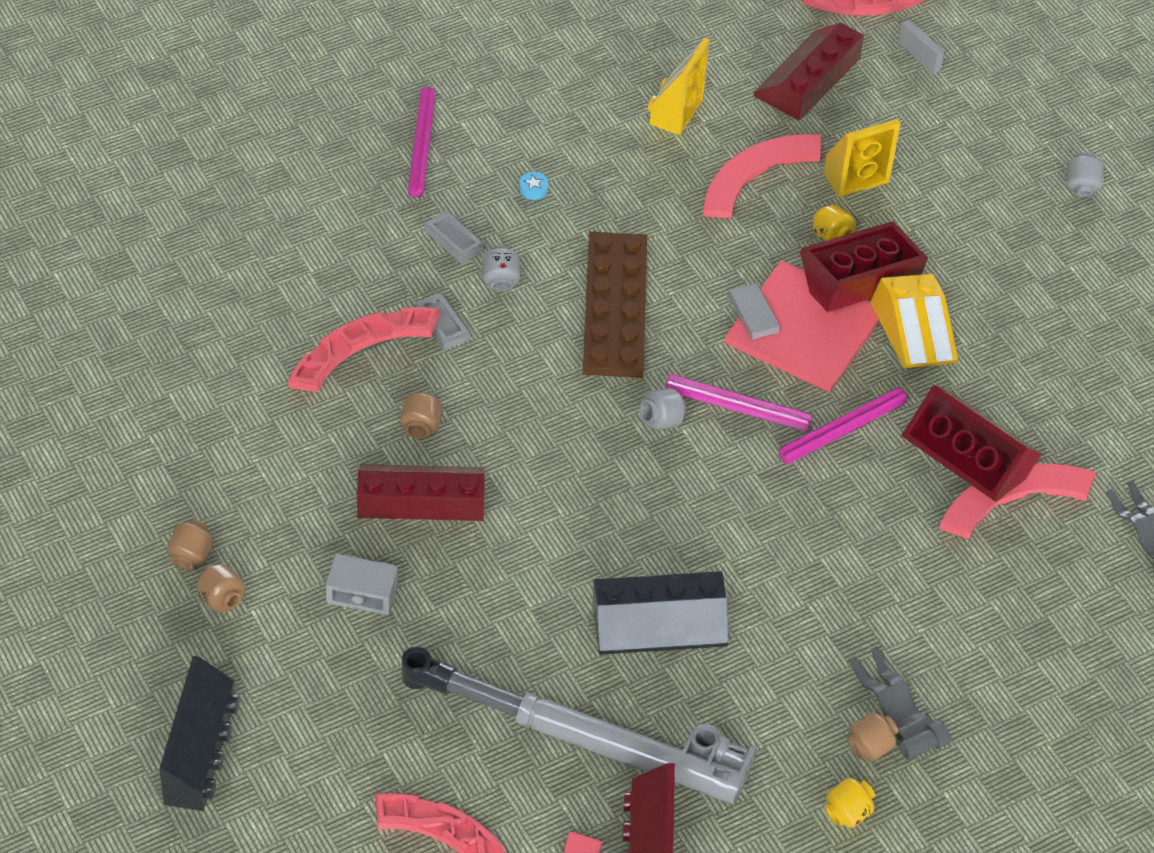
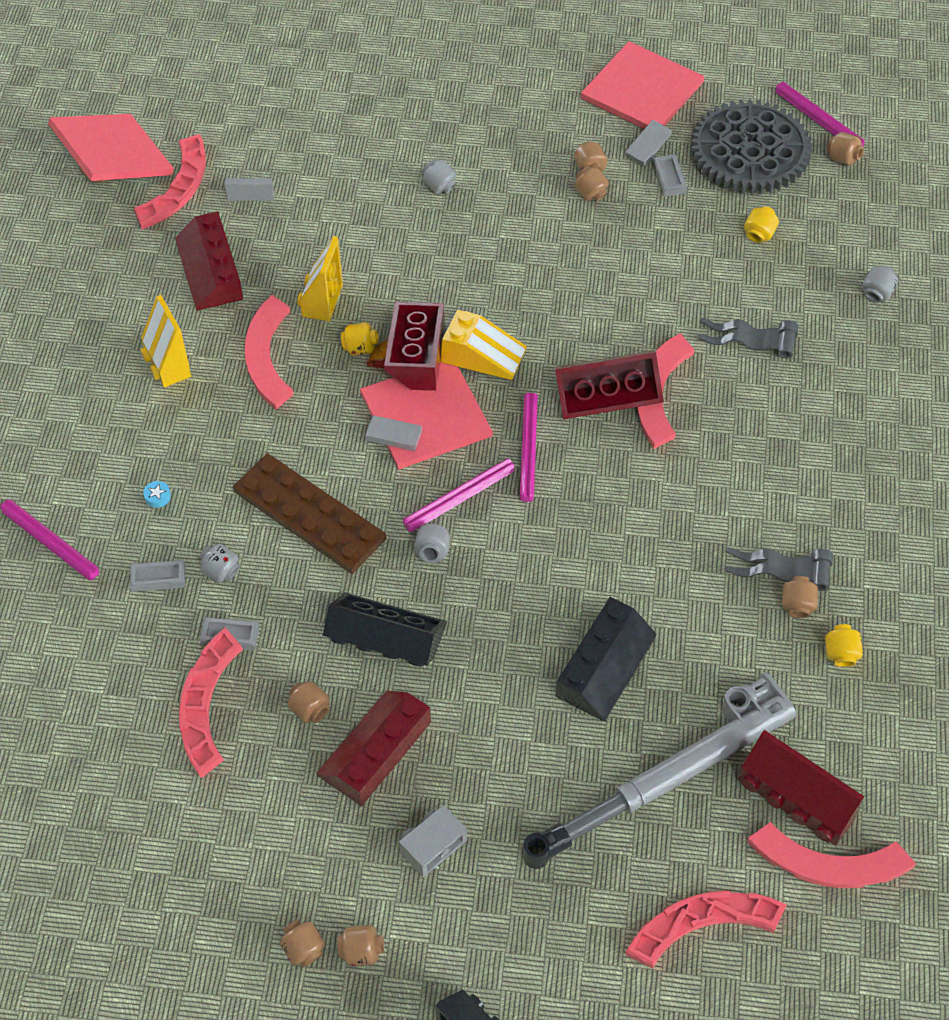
camera: 50 degrees left, 5 degrees up
(543, 425) = (384, 629): none -> black slope

